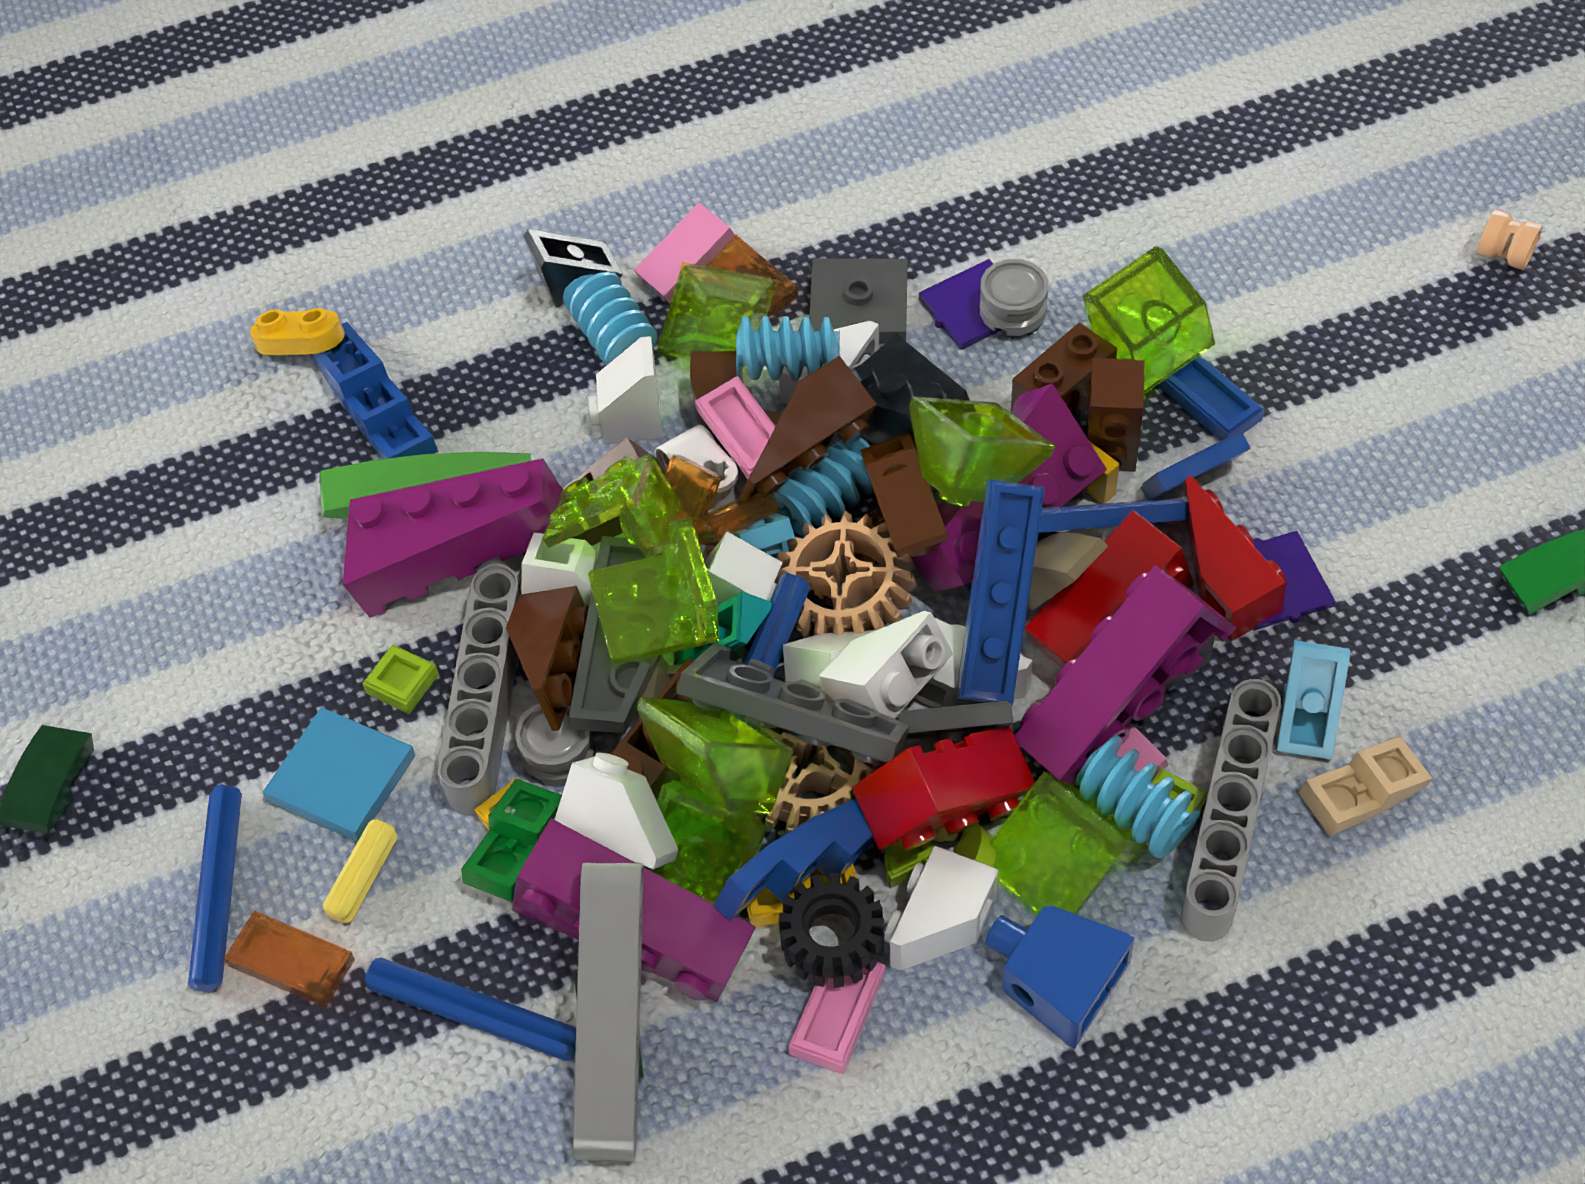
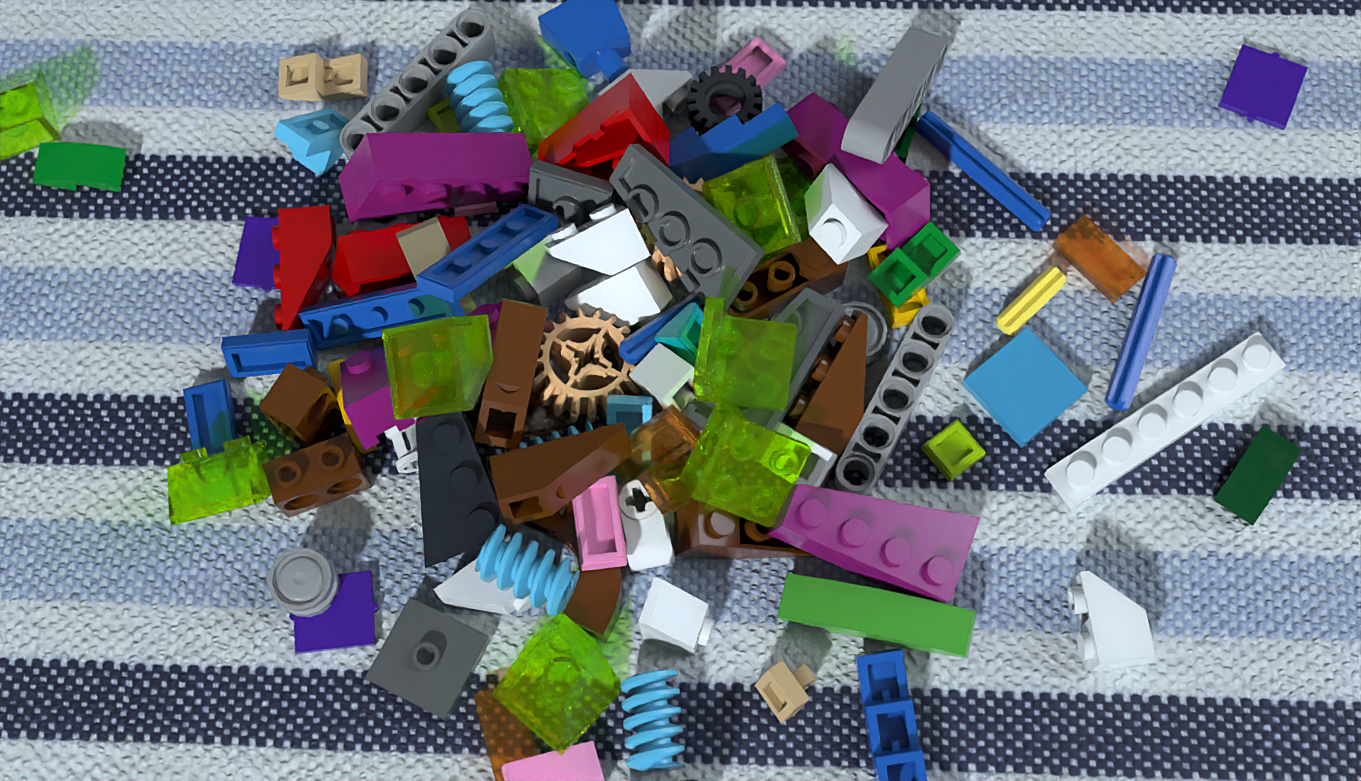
camera: 155 degrees left, 15 degrees up
(160, 808) = (1164, 420): none -> white plate
(177, 568) = (1111, 625): none -> white slope
(493, 396) = (785, 690): none -> tan tile

